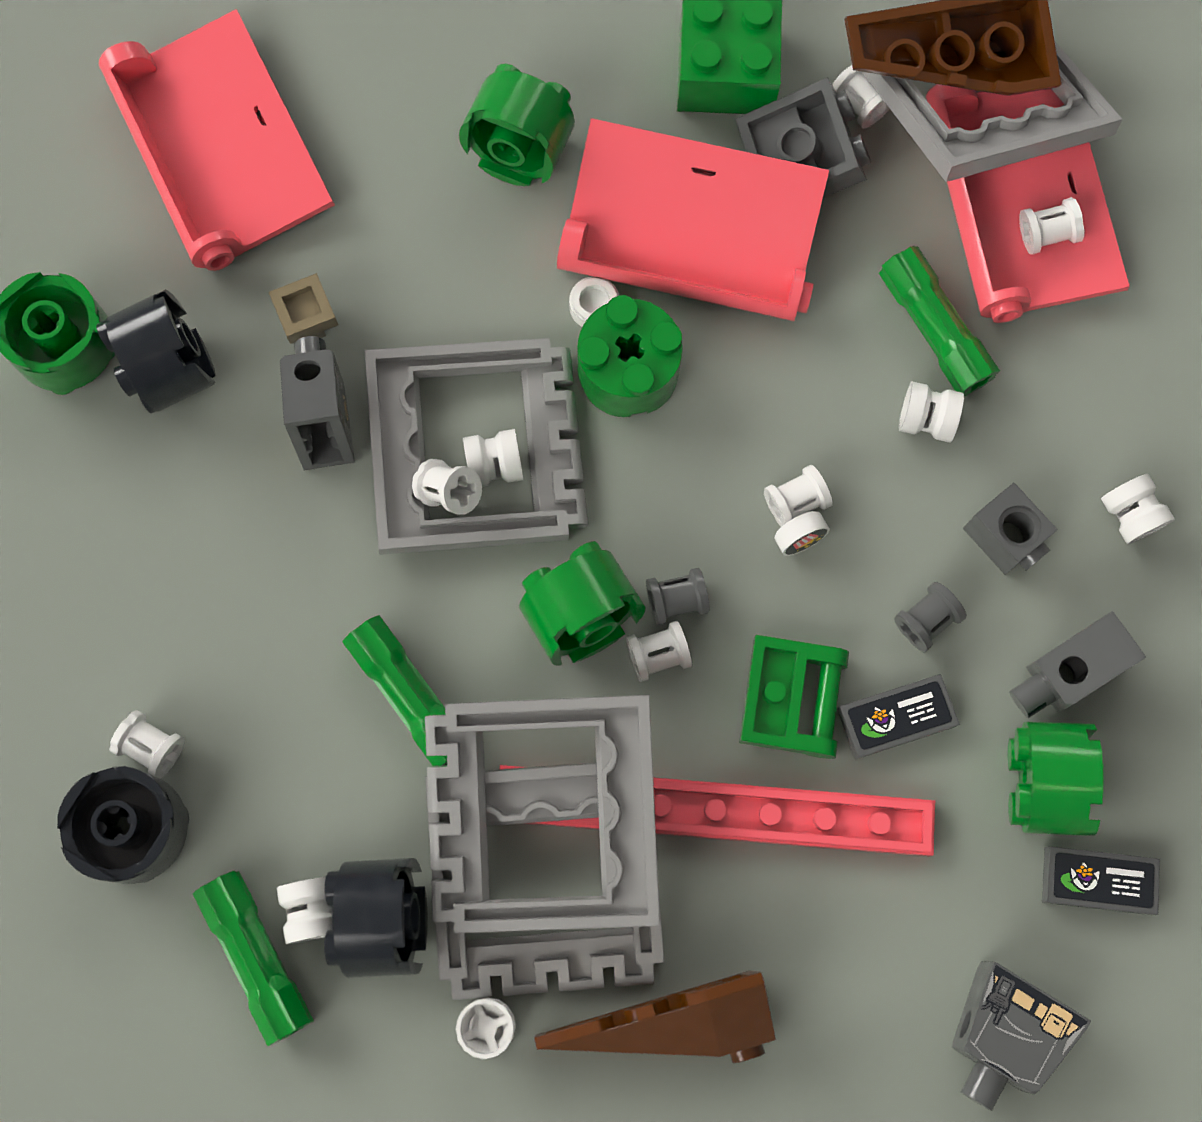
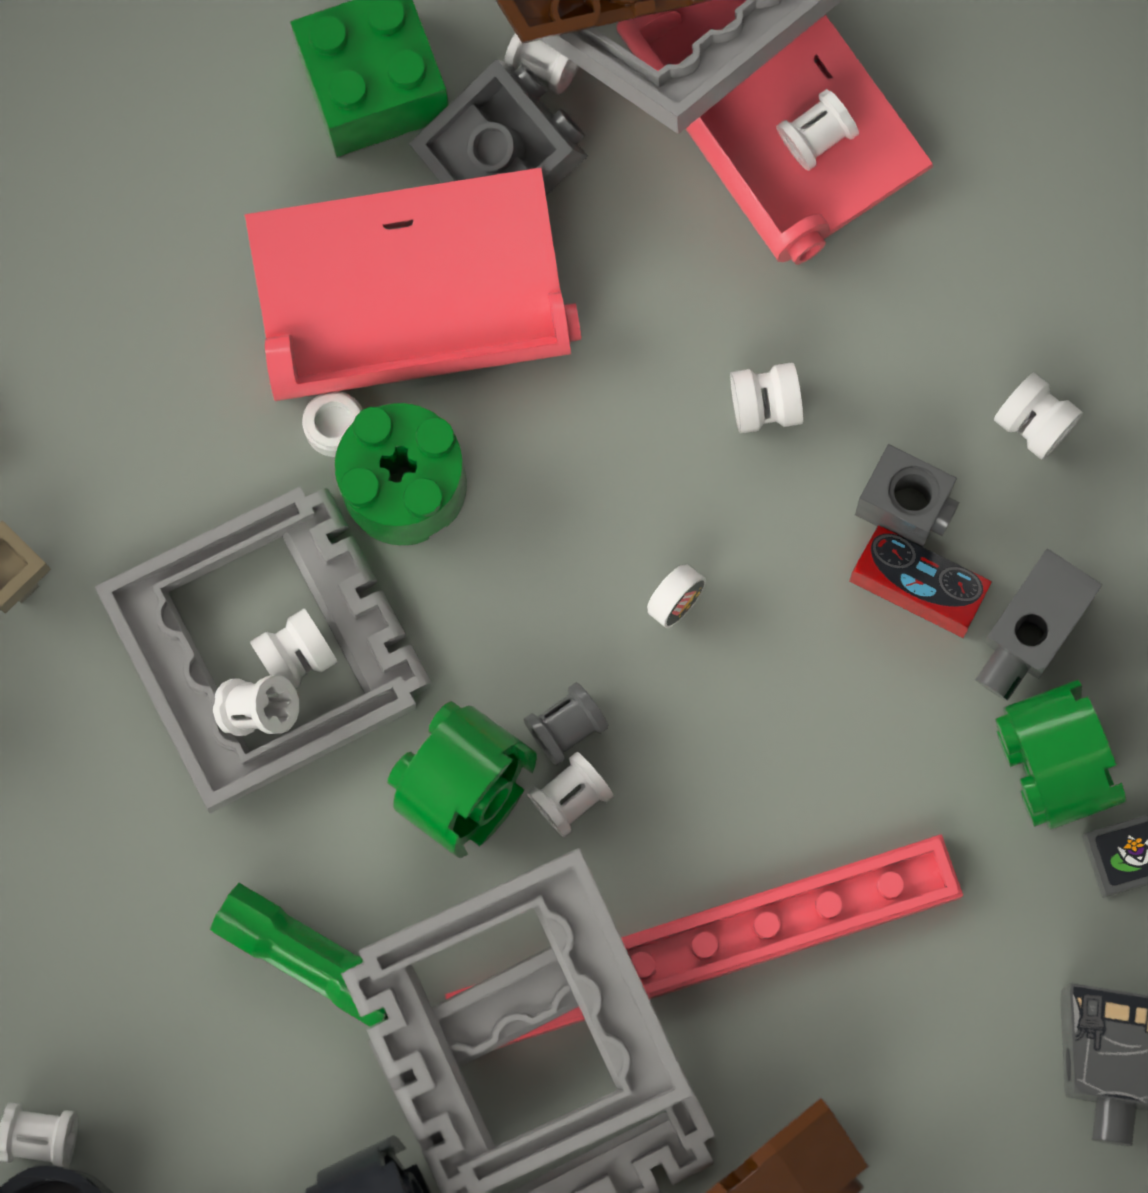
camera: 15 degrees left, 0 degrees up
(315, 405) = (66, 672): dark grey torso -> none
(518, 126) = (163, 255): green brick -> none
(776, 696) = (720, 787): green plate -> none
(798, 496) = (655, 554): white bush -> none
(898, 716) = (865, 757): tile -> none
(930, 616) = (856, 631): dark grey bush -> none
(958, 351) = (698, 263): green axle -> none
(994, 599) = (920, 581): none -> slope

